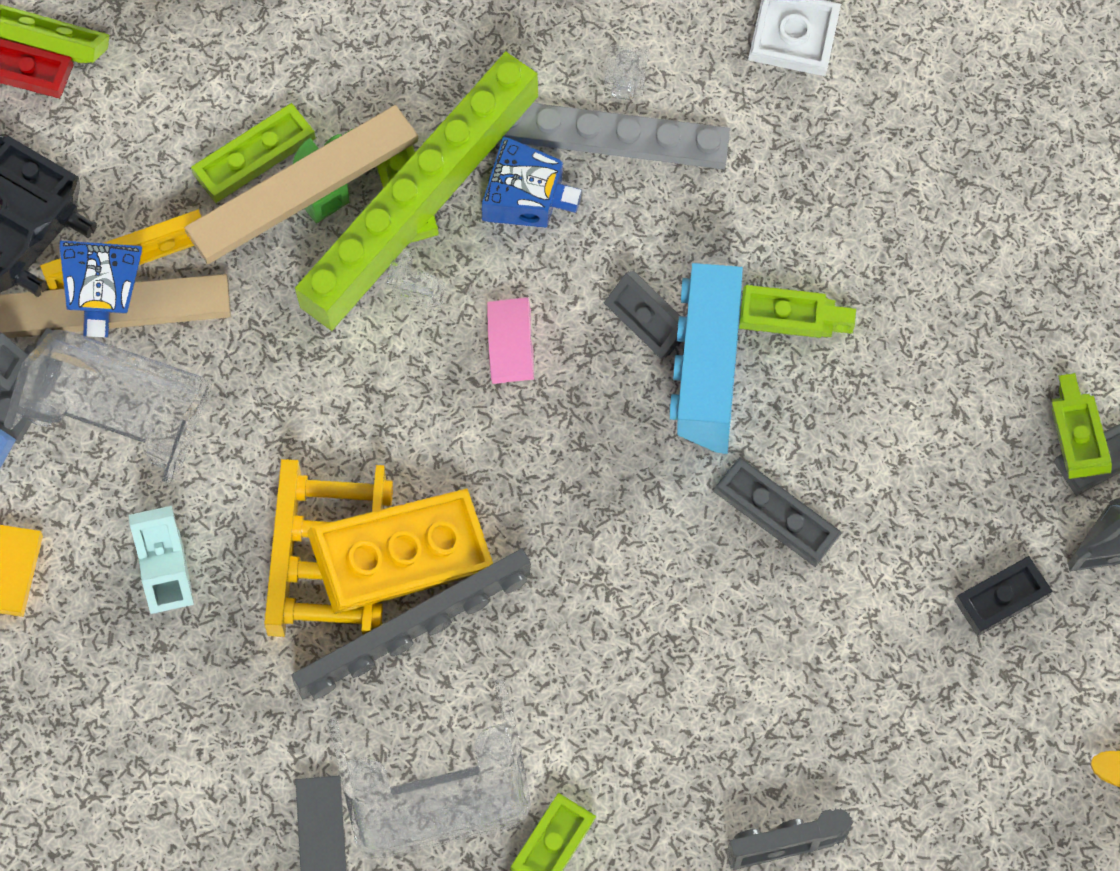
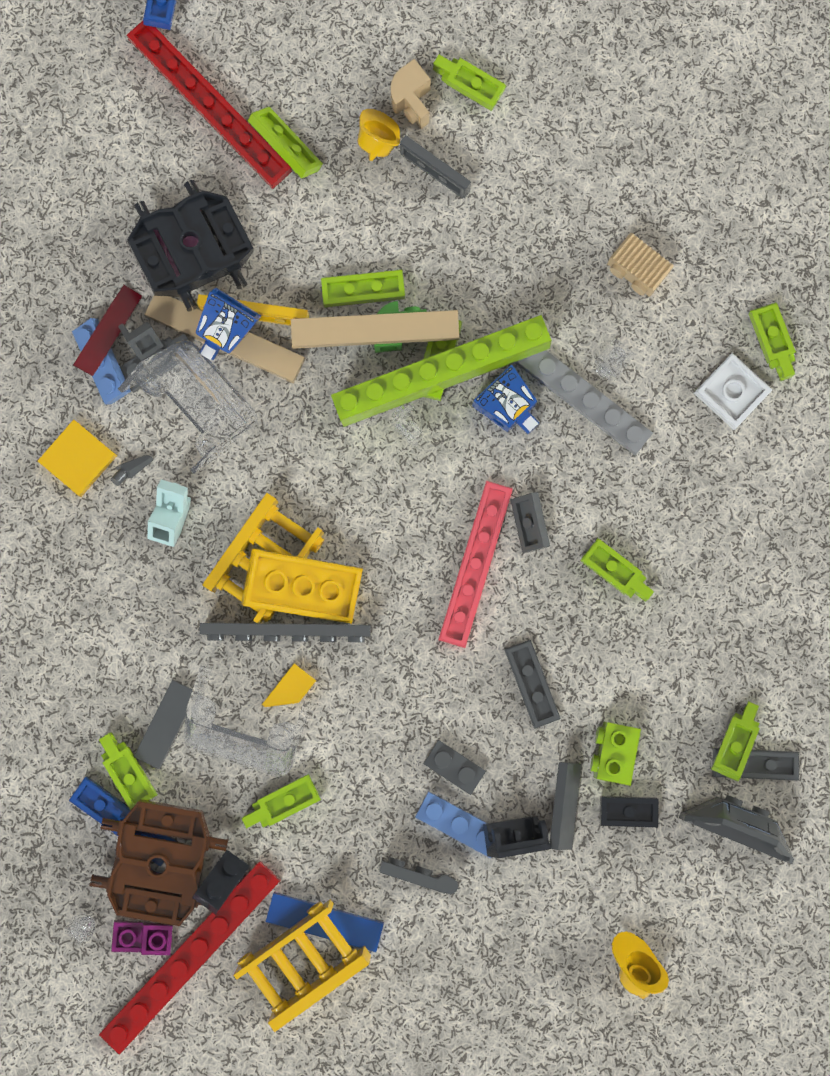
camera: 35 degrees right, 15 degrees up
(73, 539) = (130, 469): none -> dark grey bar
(465, 698) = (291, 688): none -> yellow tile
(510, 340) = (441, 492): bright pink slope -> none
(610, 408) = (475, 564): none -> coral tile
(708, 356) = (547, 573): medium azure slope -> none
(745, 673) = (454, 767): none -> dark grey plate
(798, 743) = (453, 822): none -> medium blue plate
(883, 709) = (516, 837): none -> black hinge
(919, 634) = (565, 806): none -> dark grey tile
(938, 531) = (615, 753): none -> lime brick

